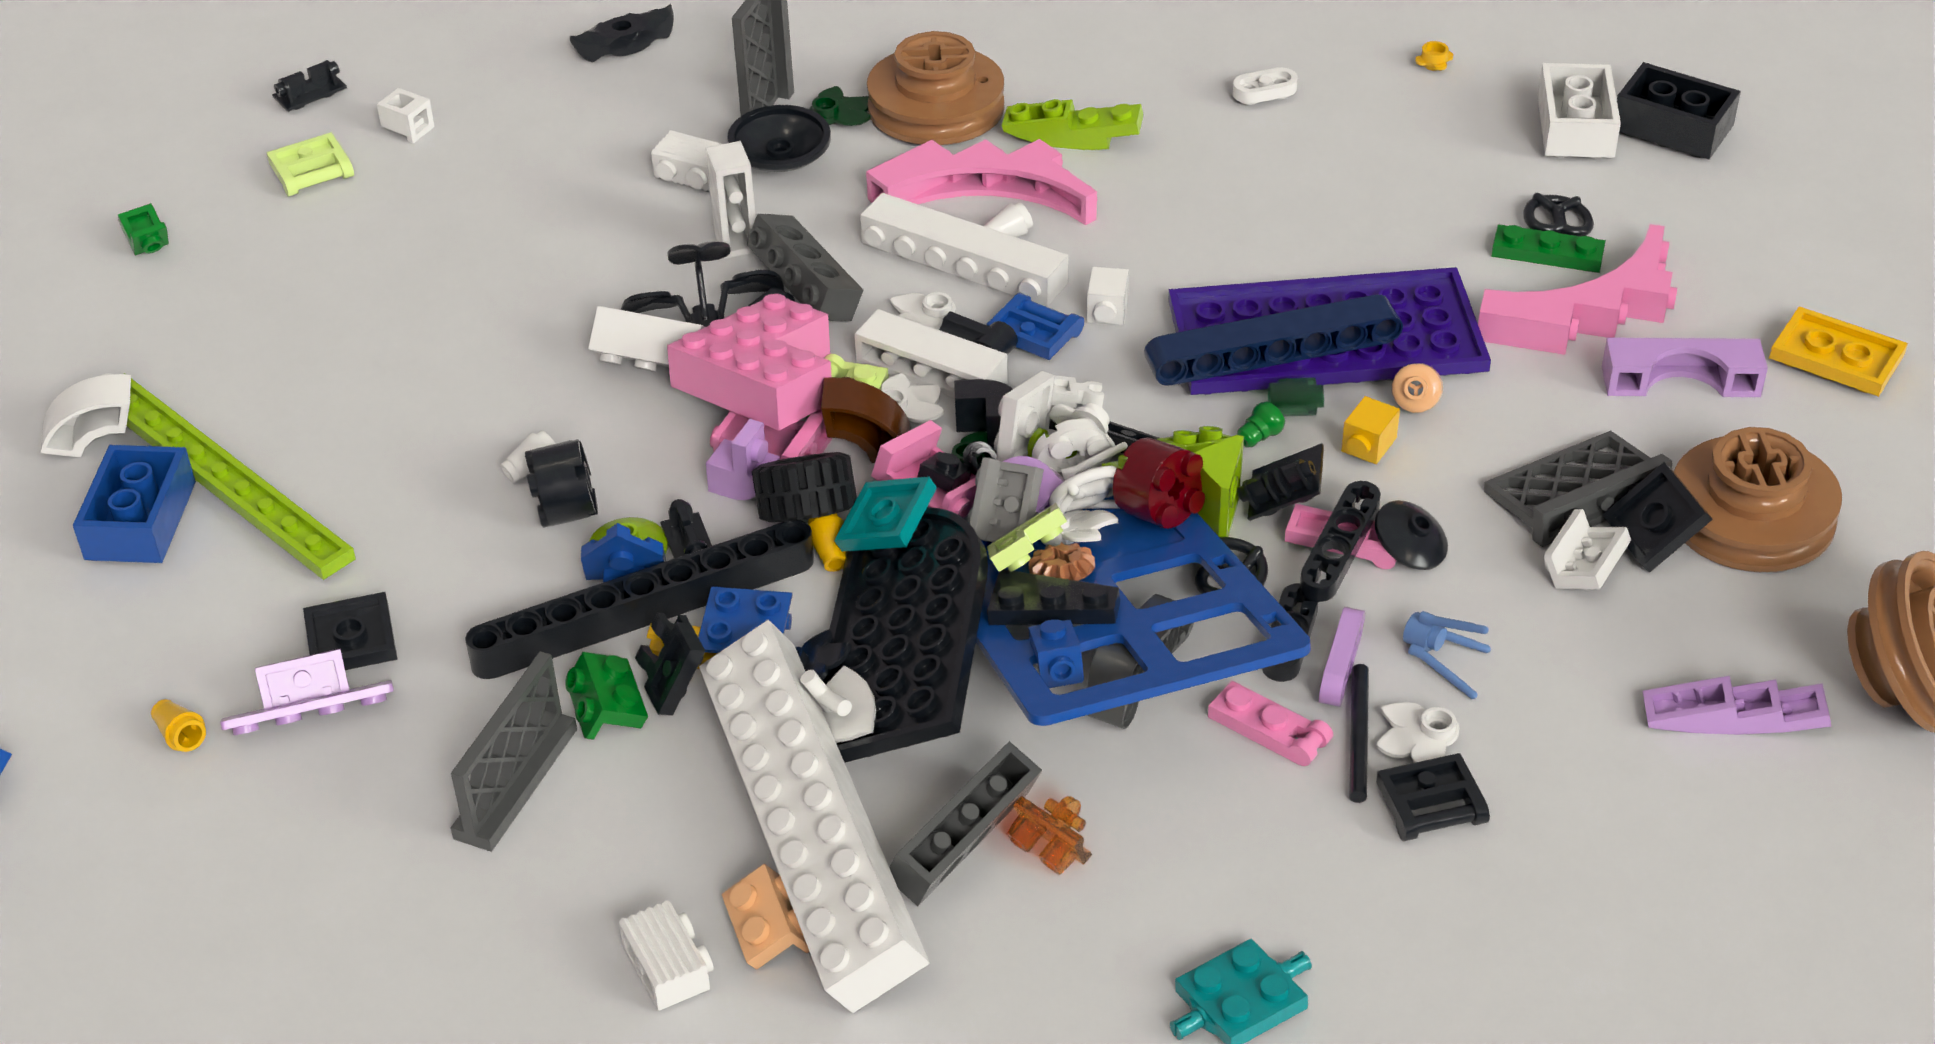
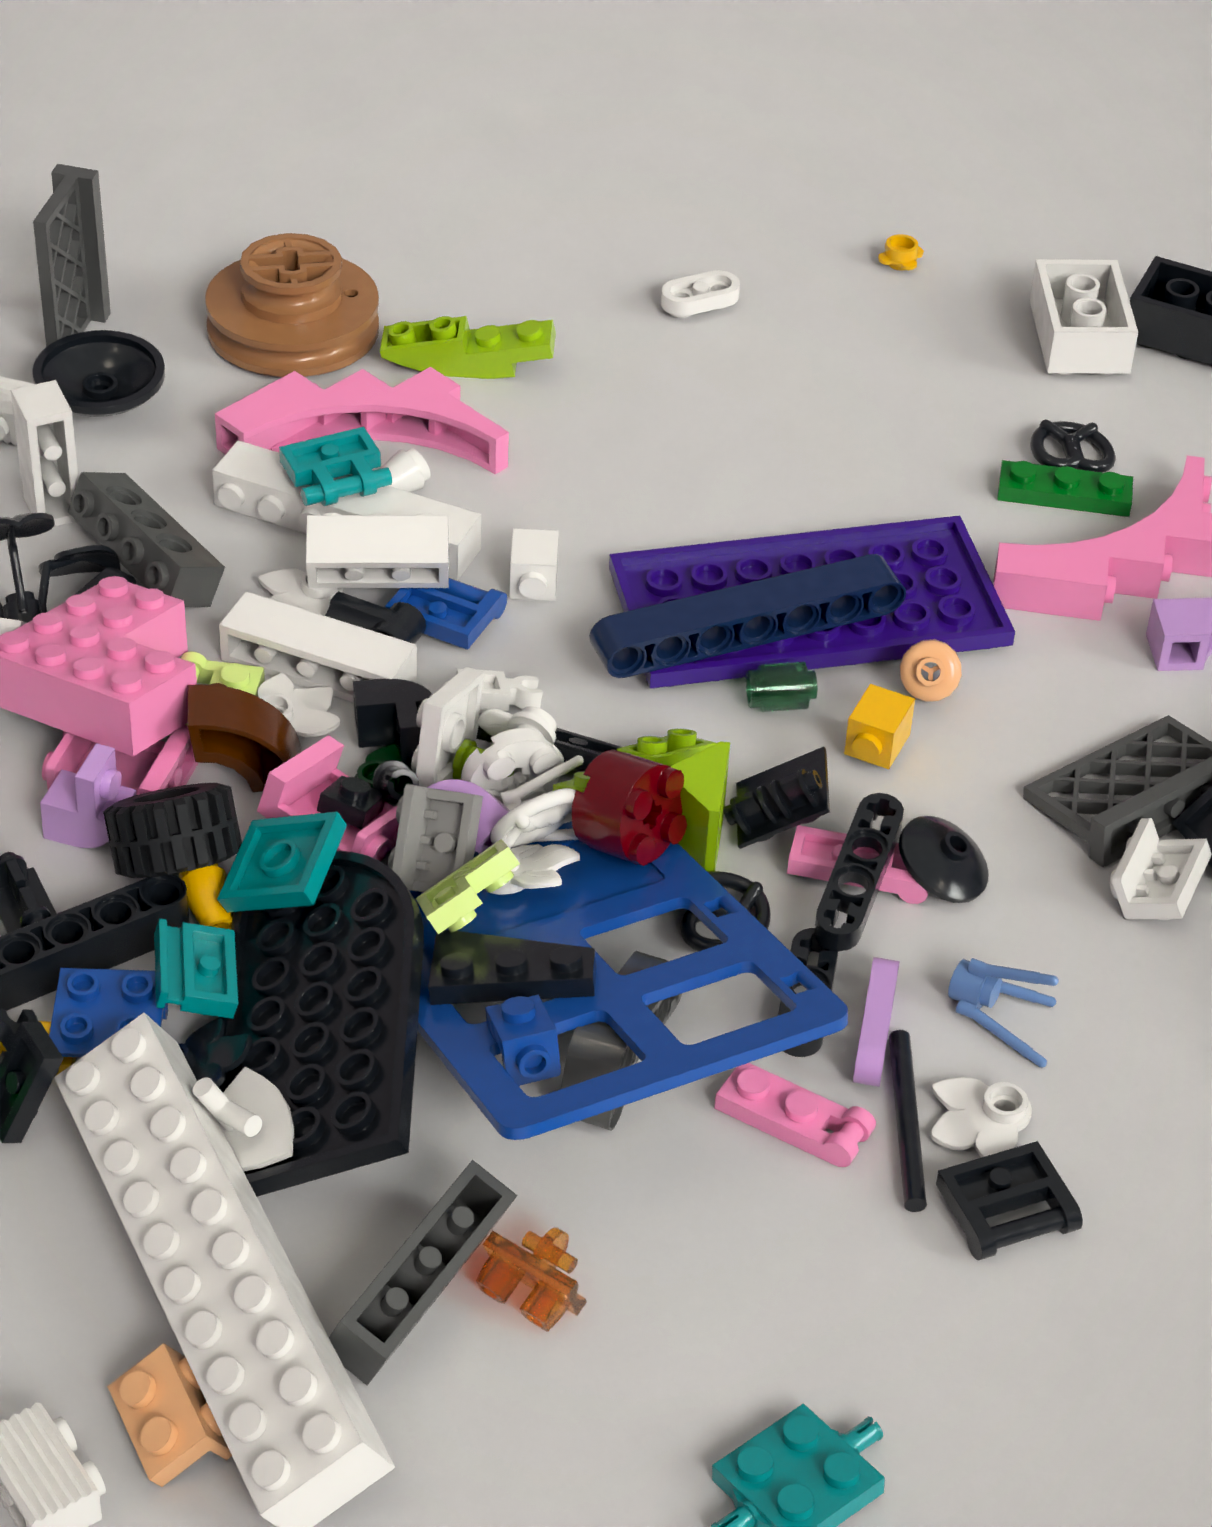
camera: 10 degrees left, 0 degrees up
(813, 591) = (196, 968): none -> teal plate
(841, 109) = (172, 333): dark green plate -> none
(955, 206) = (331, 457): none -> teal plate
(982, 280) = (377, 551): none -> white brick
(1063, 562) = (517, 916): nougat gear -> none
(1264, 422) = (745, 721): green piece -> none

